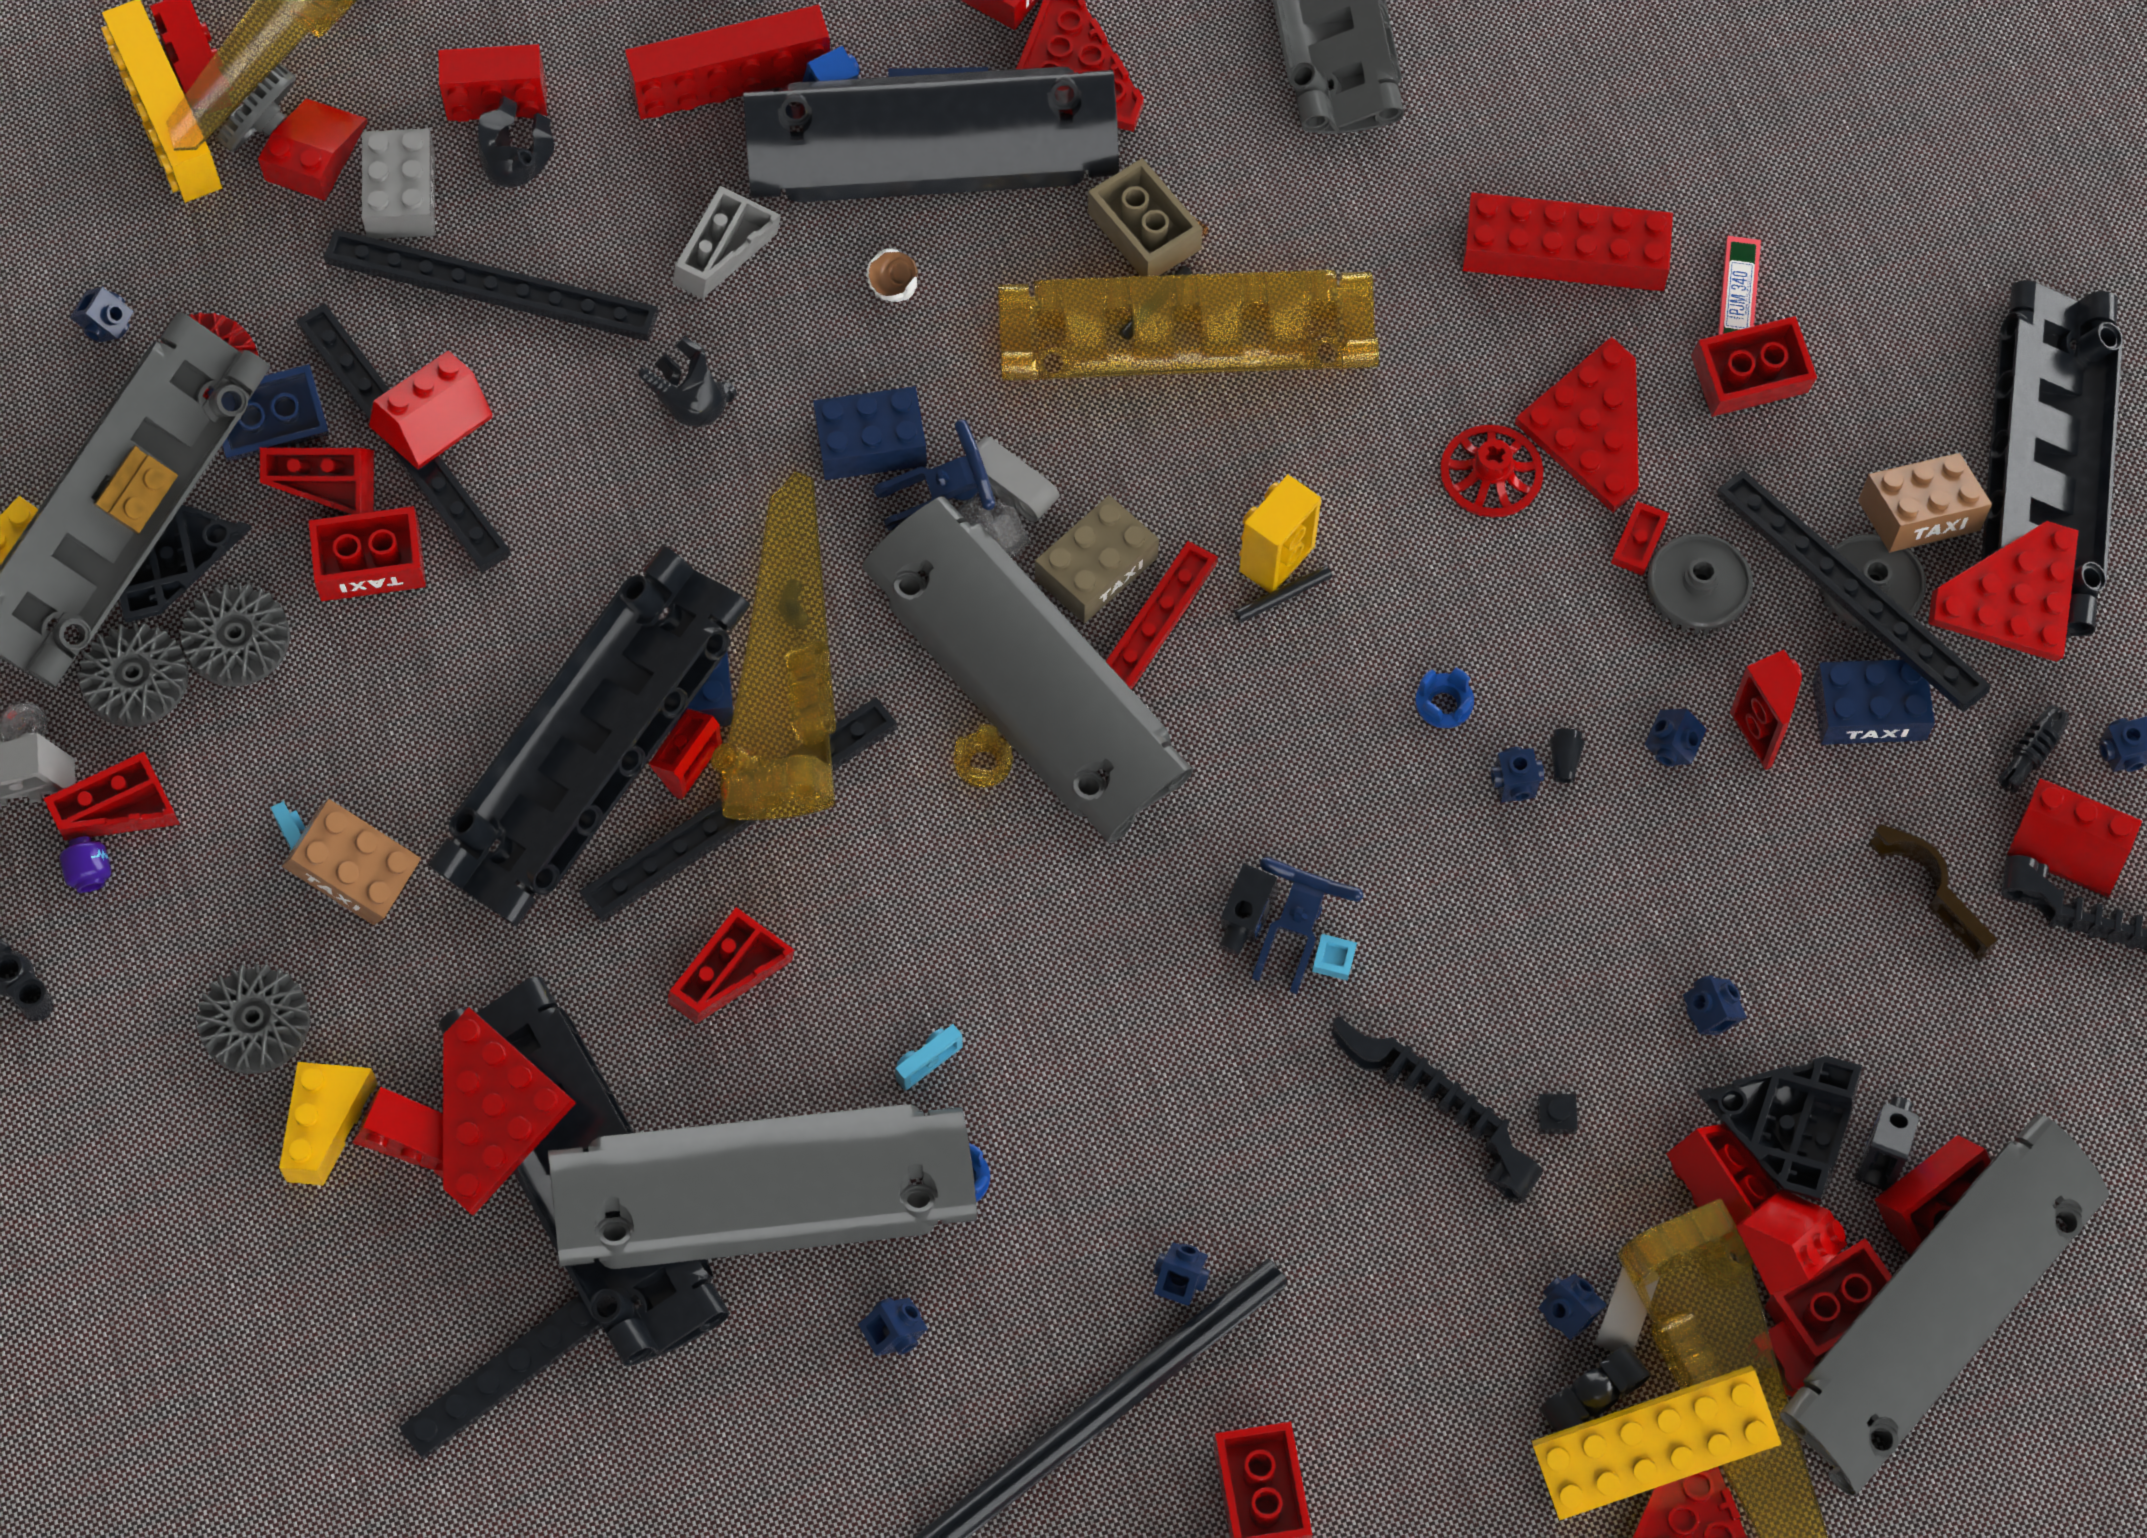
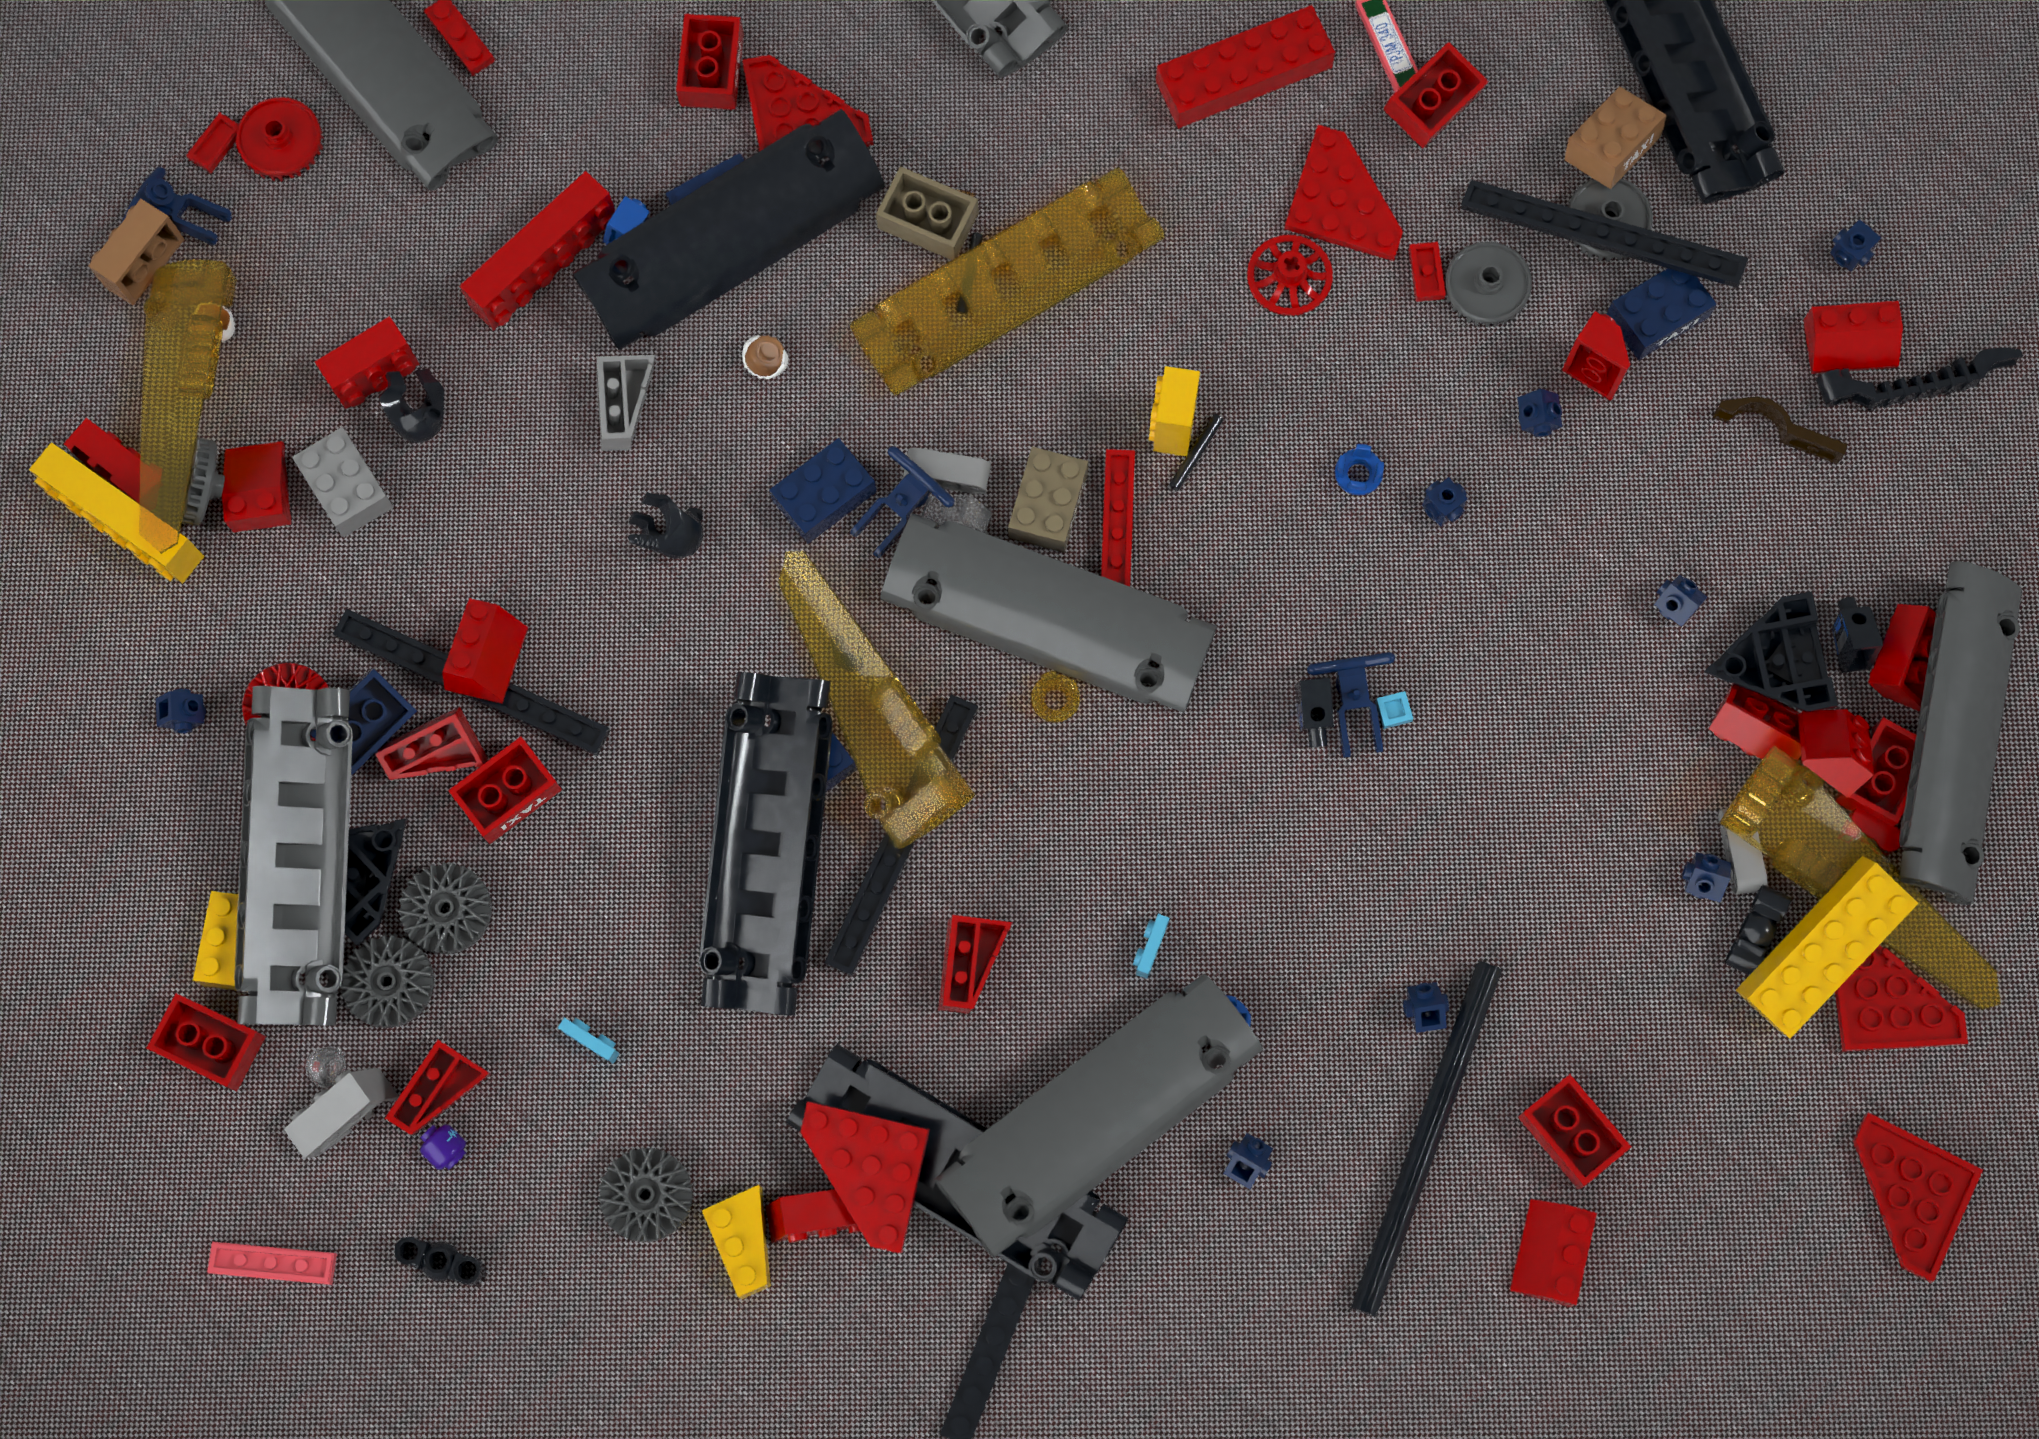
camera: 25 degrees left, 10 degrees up
(135, 490) = (305, 841): pearl gold plate -> none
(351, 862) = (645, 1037): medium nougat brick -> none
(491, 285) = (463, 525): black plate -> none
(686, 751) = (840, 814): red tile -> none
(1513, 1171) = (1610, 801): black piece -> none
(1557, 1114) = (1614, 739): black plate -> none
(1566, 753) = (1468, 465): black cone -> none
(2015, 594) = (1719, 175): red plate -> none
(2034, 746) = (1789, 282): black hinge -> none

